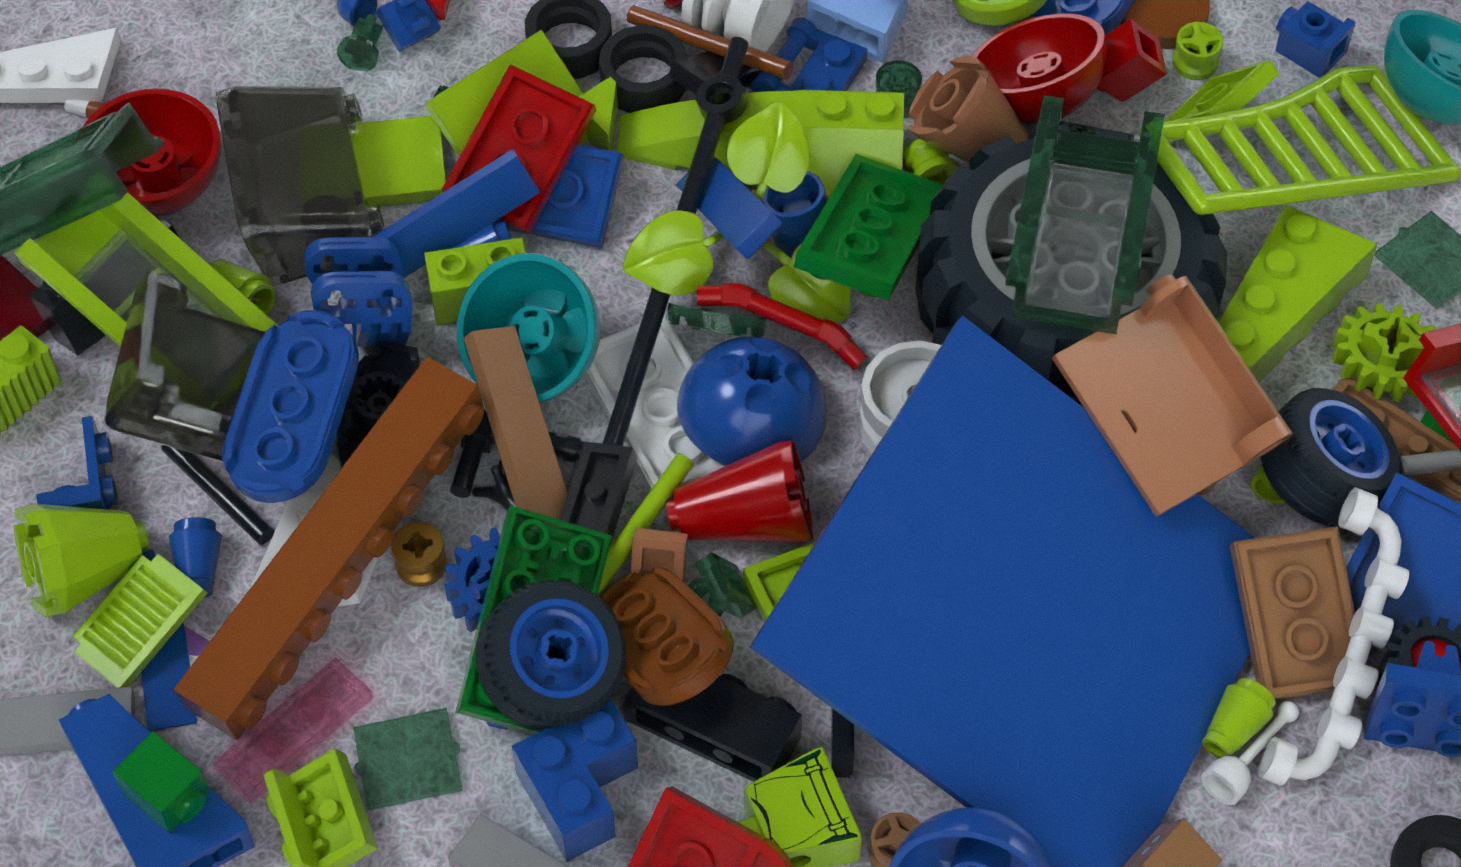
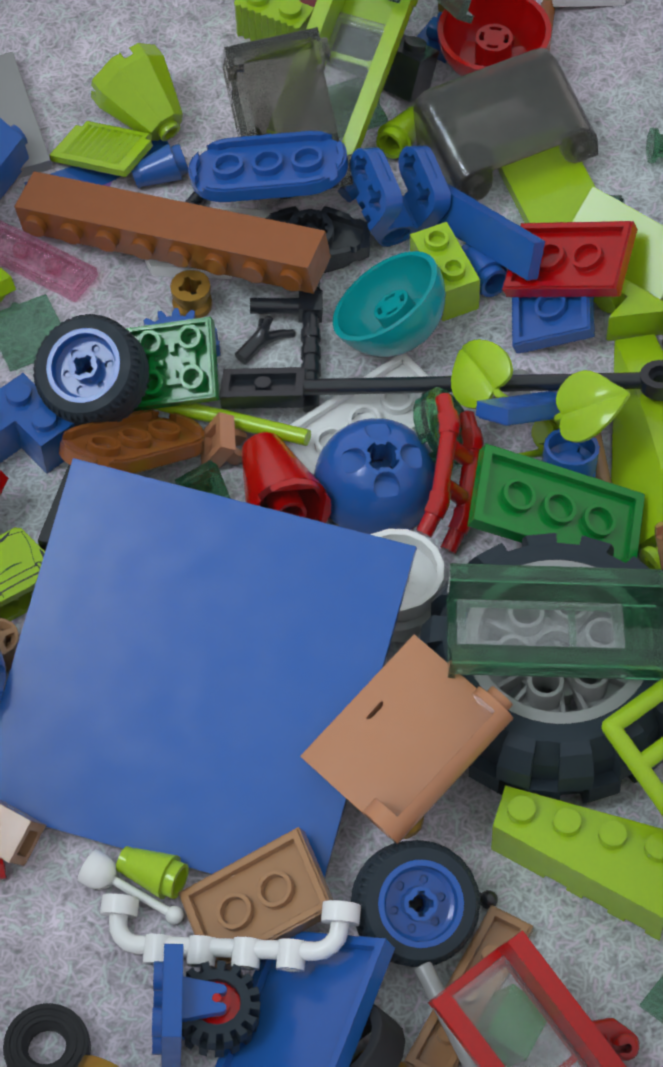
camera: 80 degrees right, 0 degrees up
(101, 489) = (197, 97): blue bracket -> none
(517, 420) = (305, 316): medium nougat tile -> none
(1379, 349) = (580, 947): lime gear -> none

